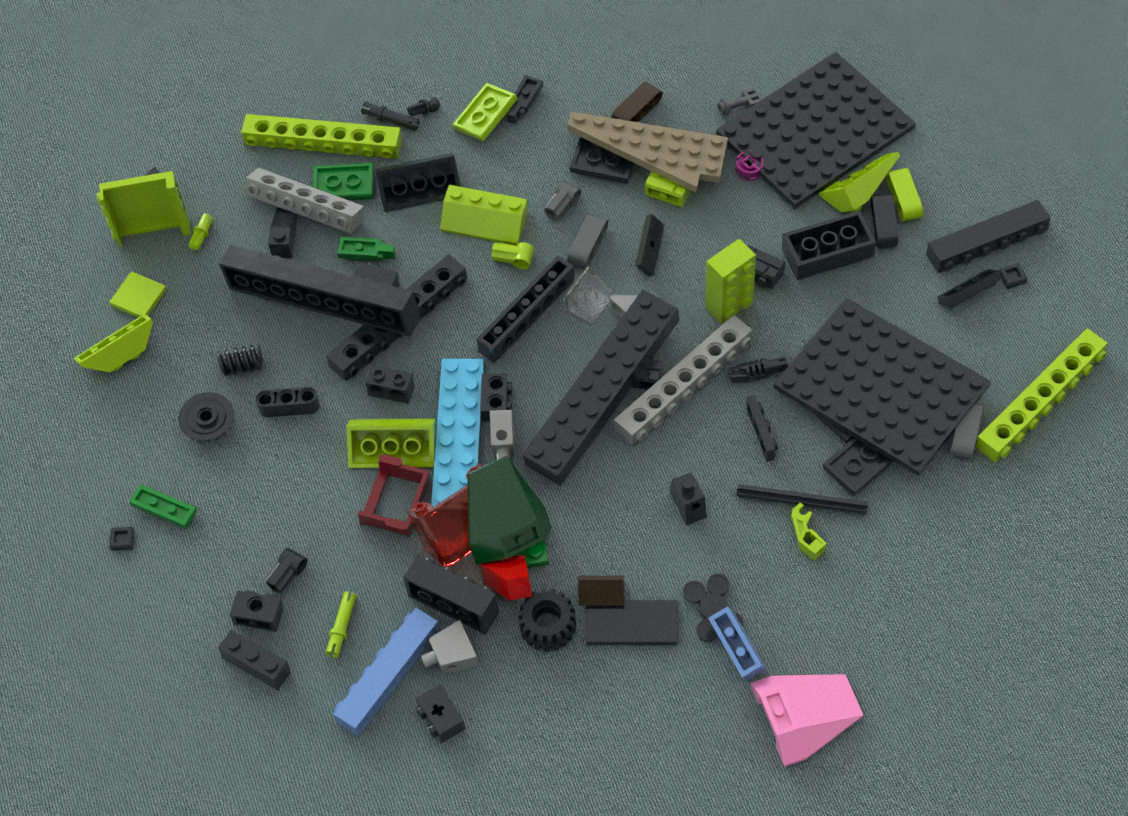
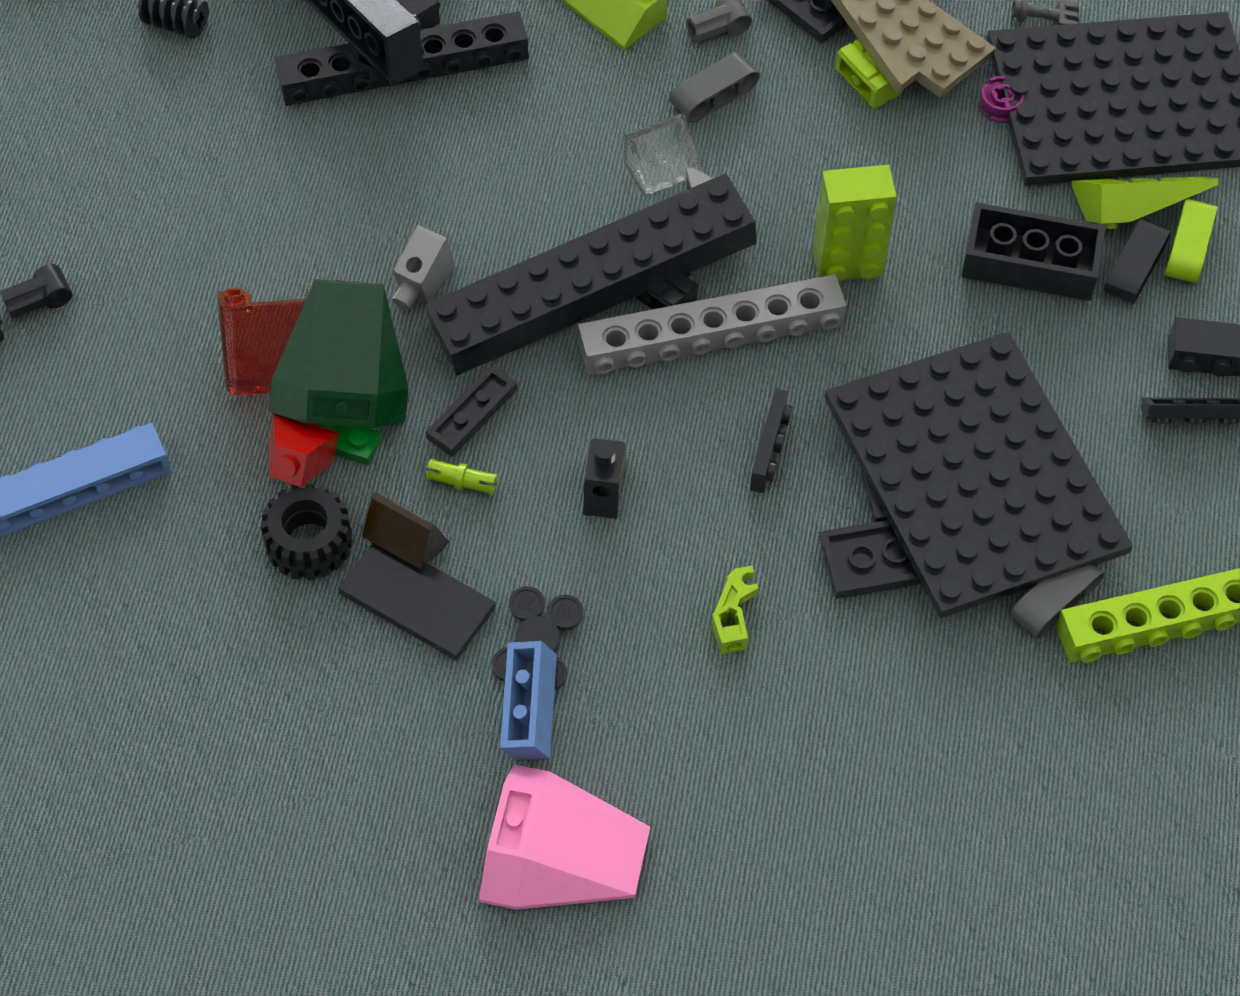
camera: 25 degrees right, 0 degrees up
(204, 407) = (78, 56): black gear -> none
(278, 397) = (191, 91): black beam -> none
(338, 632) = (42, 403): lime pin -> none
(390, 384) = (331, 134): black brick -> none
(393, 466) = (253, 234): dark red piece -> none
(402, 438) = (280, 207): lime slope -> none
(436, 702) = (87, 574): black brick -> none
(450, 650) = (161, 502): light grey torso -> none
(451, 594) = (208, 431): black brick -> none
(457, 425) = (385, 222): medium azure plate -> none
(492, 397) = (455, 212): black brick -> none
(517, 255) = (611, 60): lime piece -> none
(525, 309) = (567, 128): black brick -> none
(586, 501) = (471, 410): none -> black plate
(607, 541) = (461, 476): none -> lime pin
(649, 245) = (792, 132): black tile -> none
(756, 369) = (813, 361): black hinge -> none
(767, 268) = (921, 235): black brick -> none
(803, 498) = (761, 564): black axle -> none

